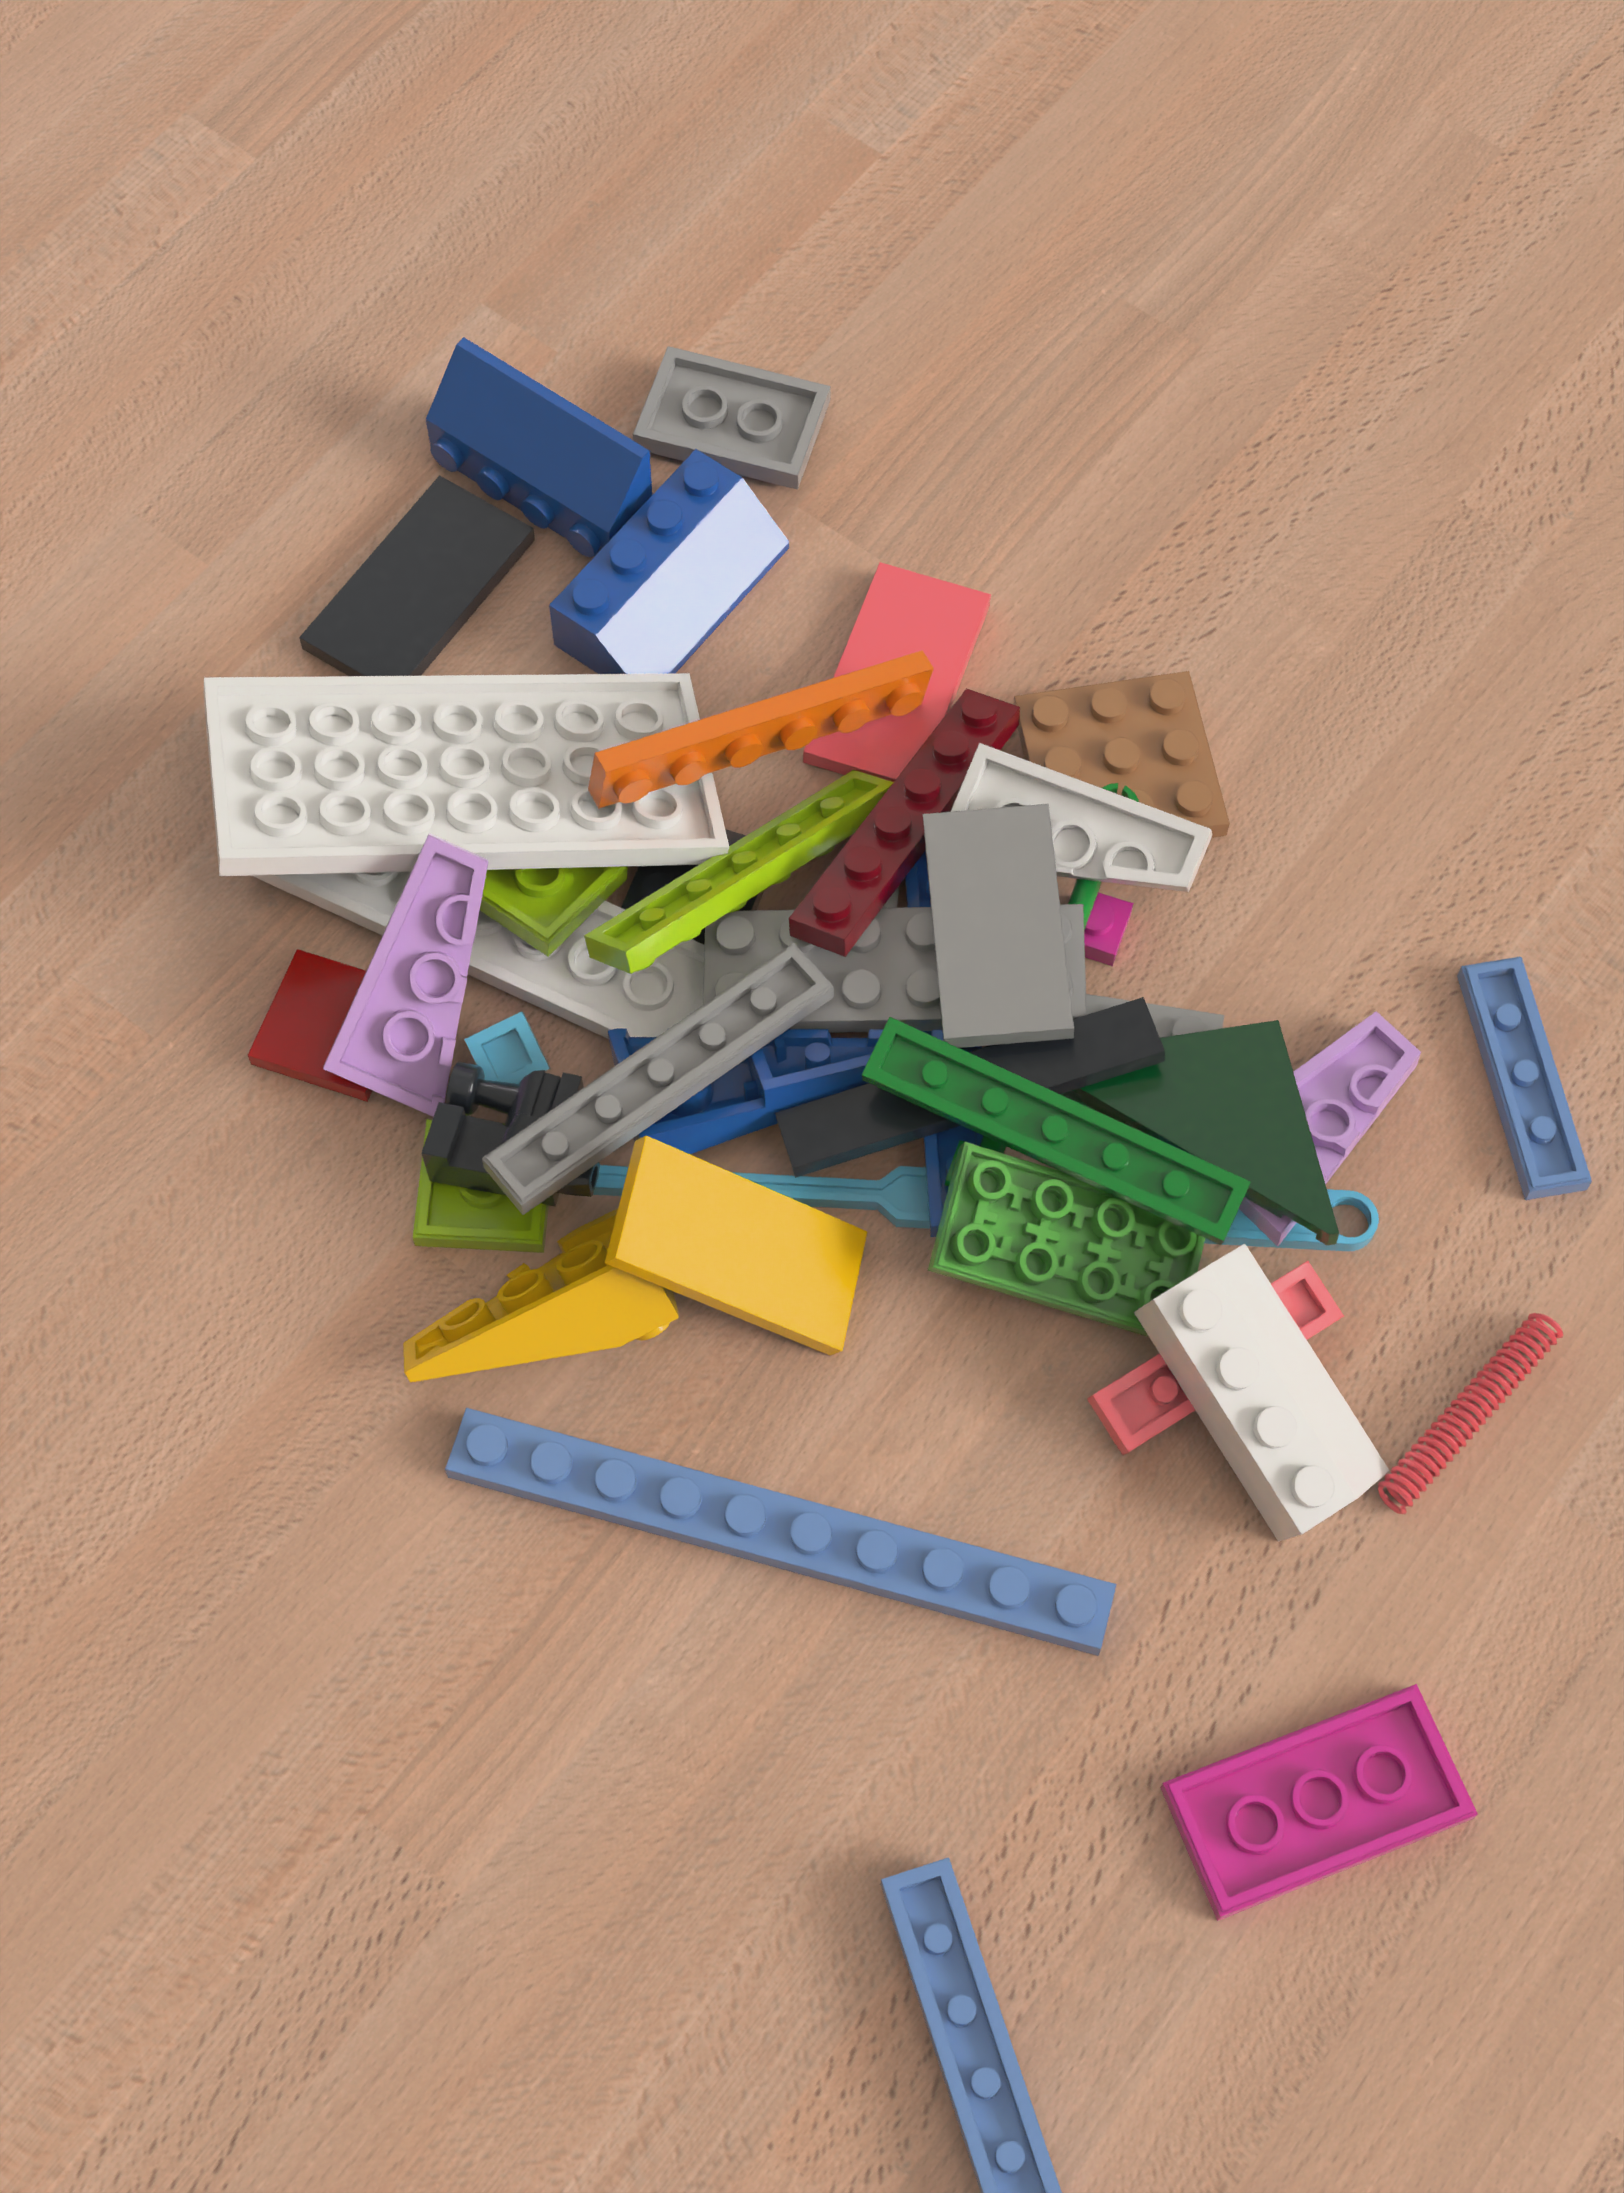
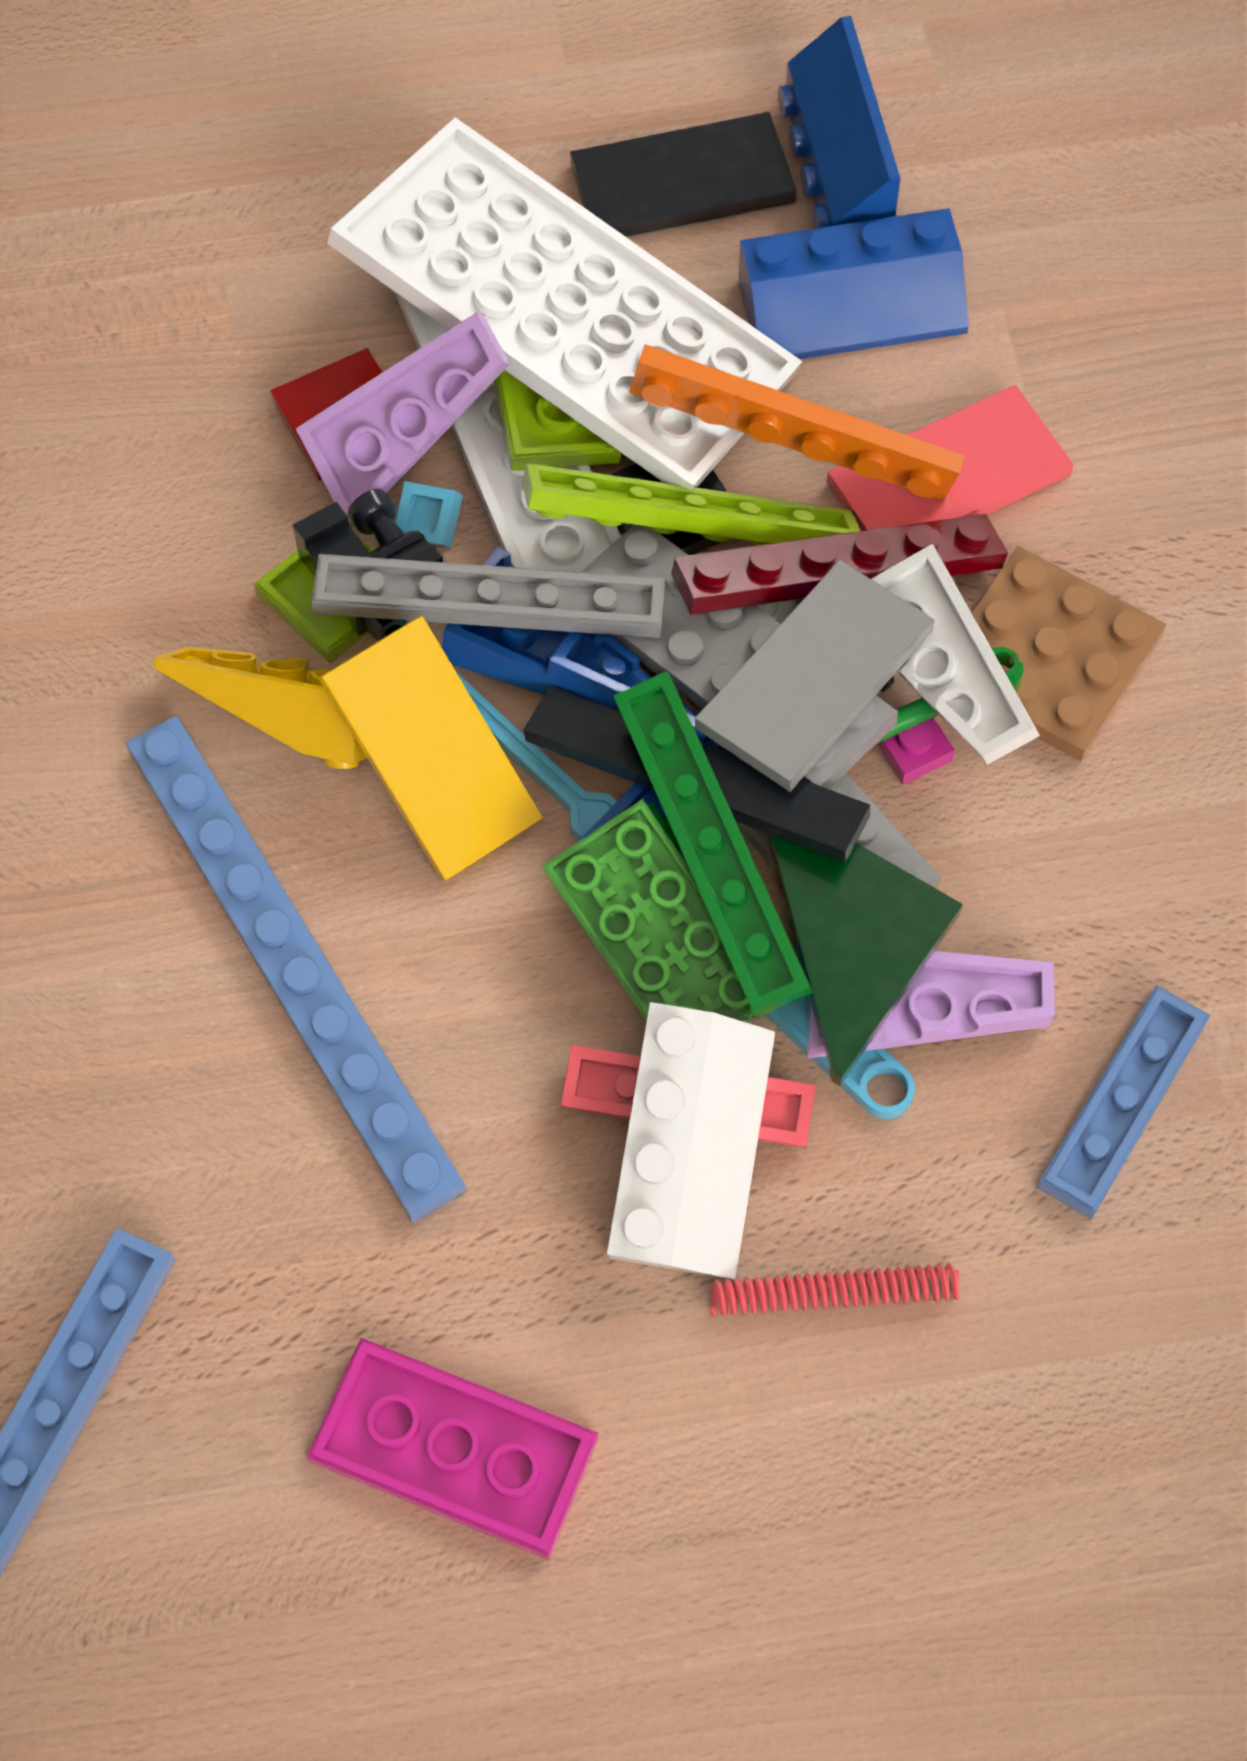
camera: 45 degrees right, 0 degrees up
(734, 414) = (1012, 213): light grey plate -> none

